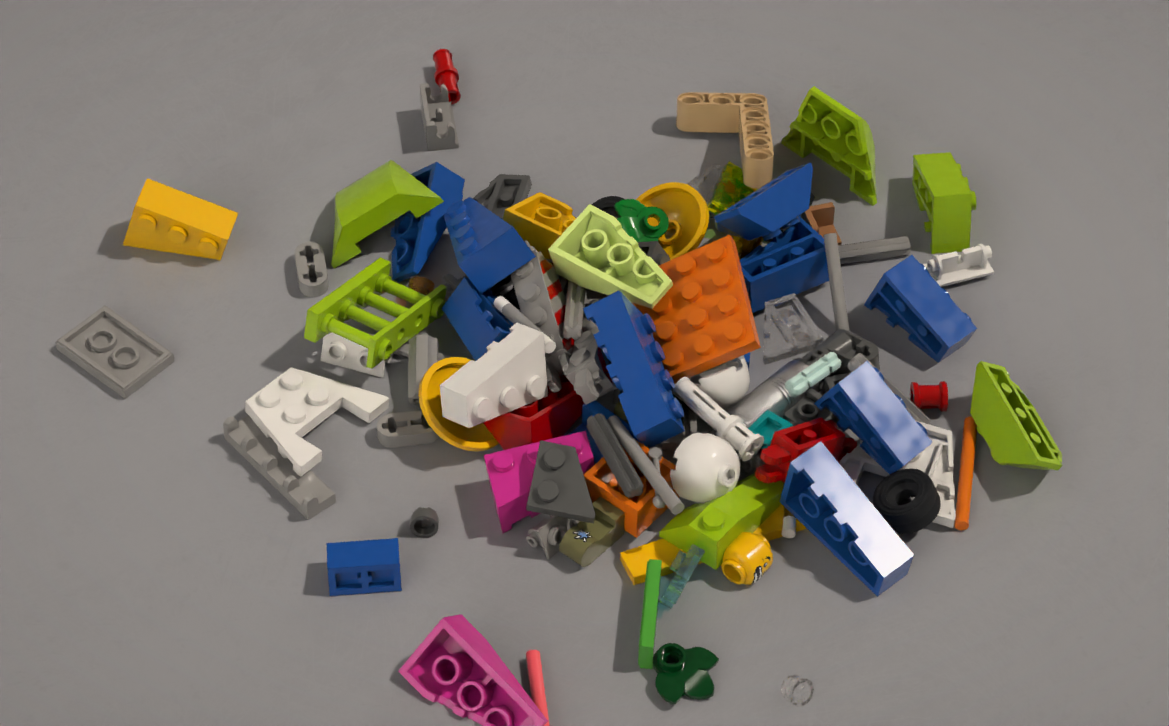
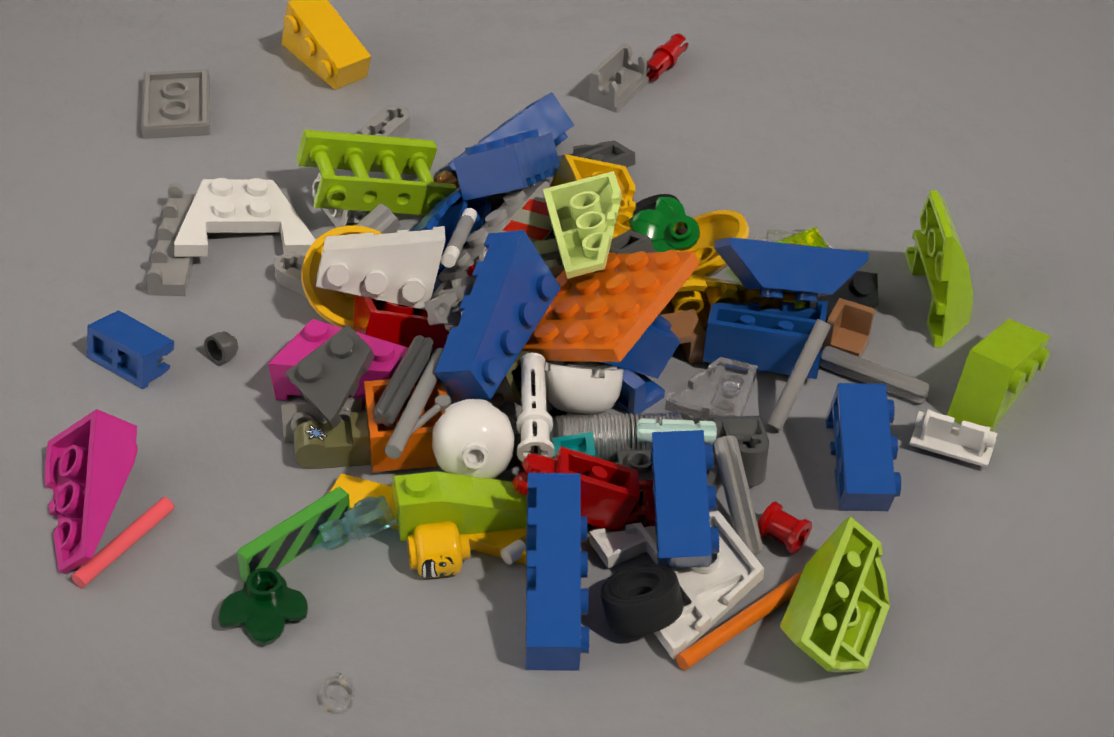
camera: 40 degrees right, 5 degrees down
(375, 203) = (495, 97): lime wedge -> none
(733, 114) = (867, 209): tan beam -> none

